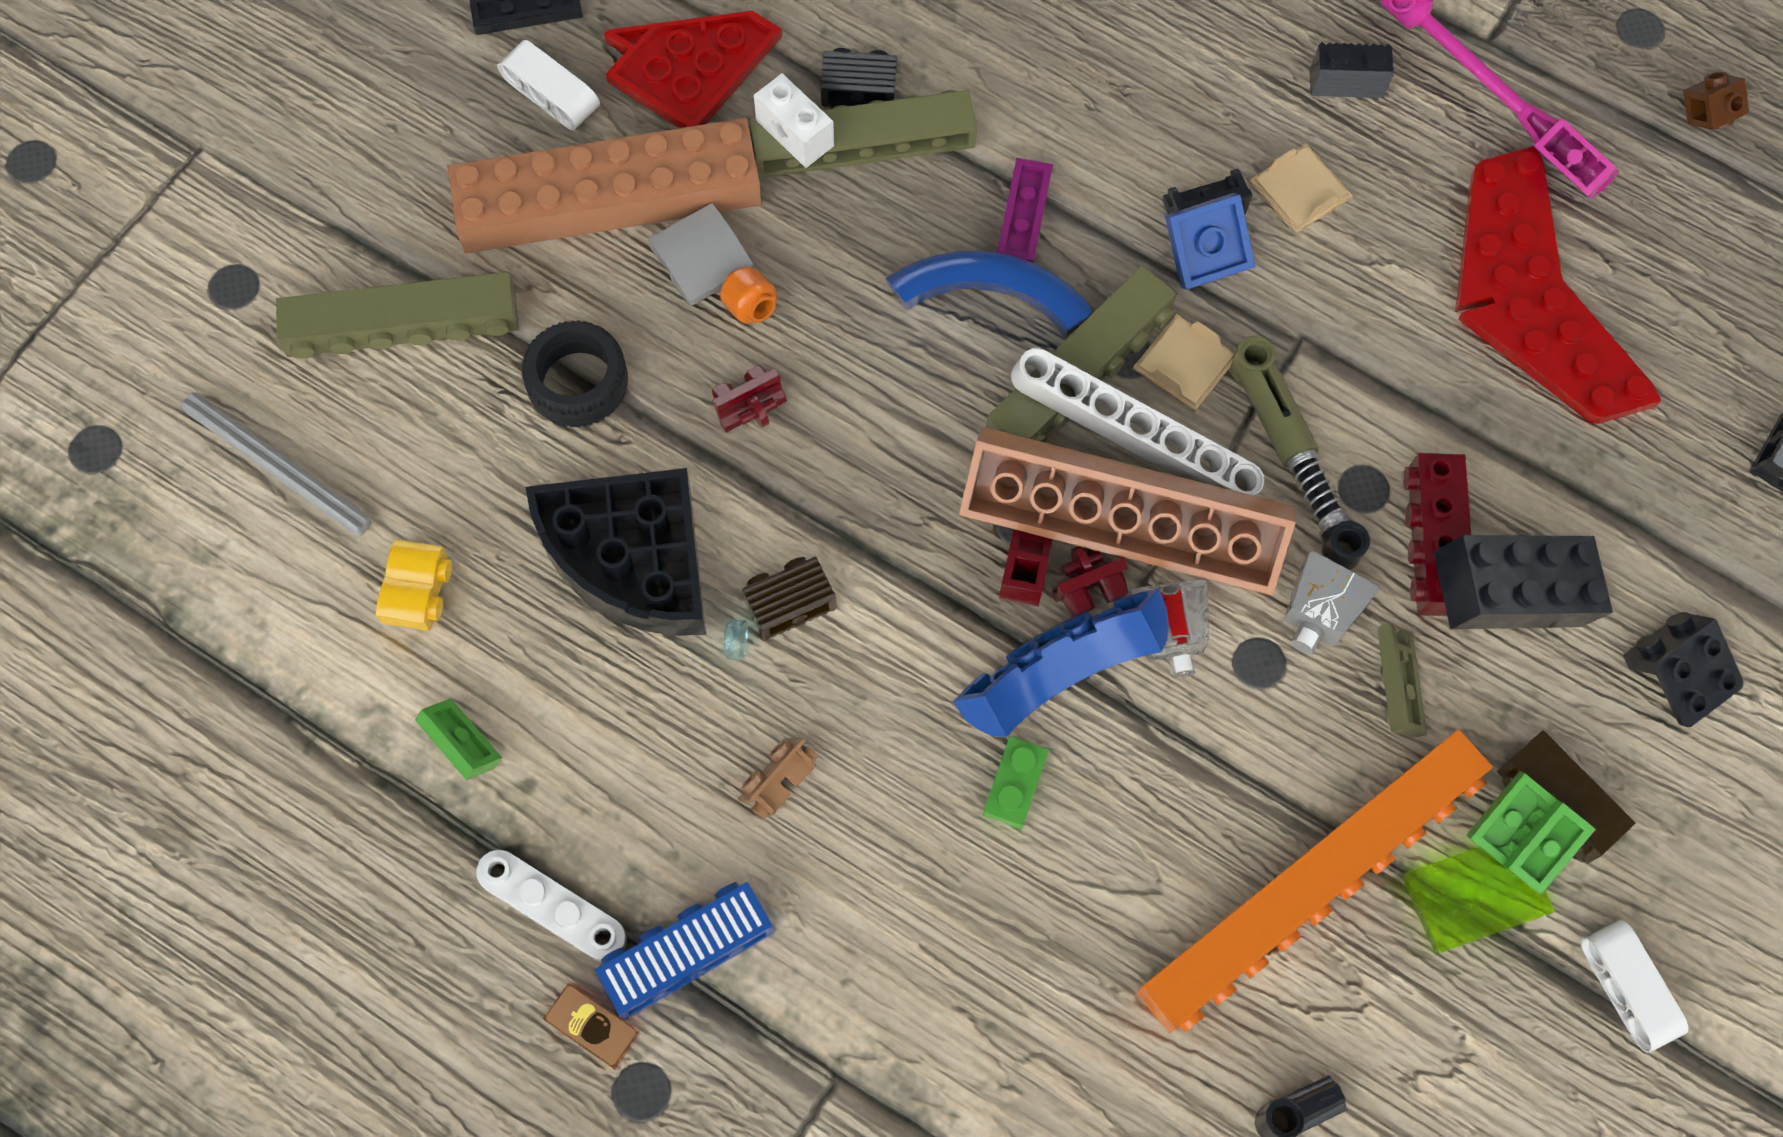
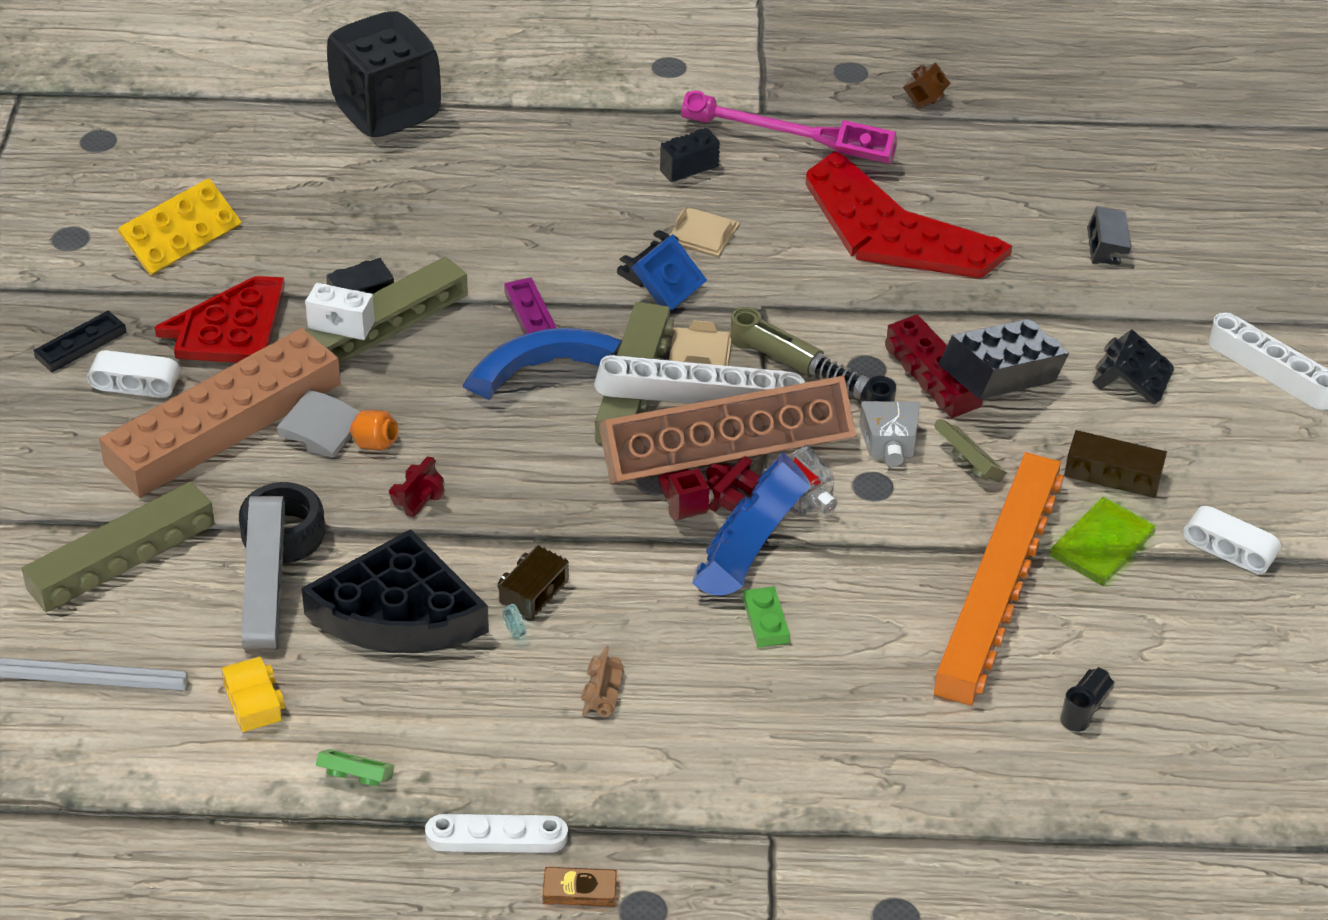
camera: 30 degrees left, 25 degrees down
(505, 439) = (263, 572): none -> light grey beam
(684, 950) = (613, 807): blue brick -> none
(1530, 832) = (1109, 484): bright green slope -> none

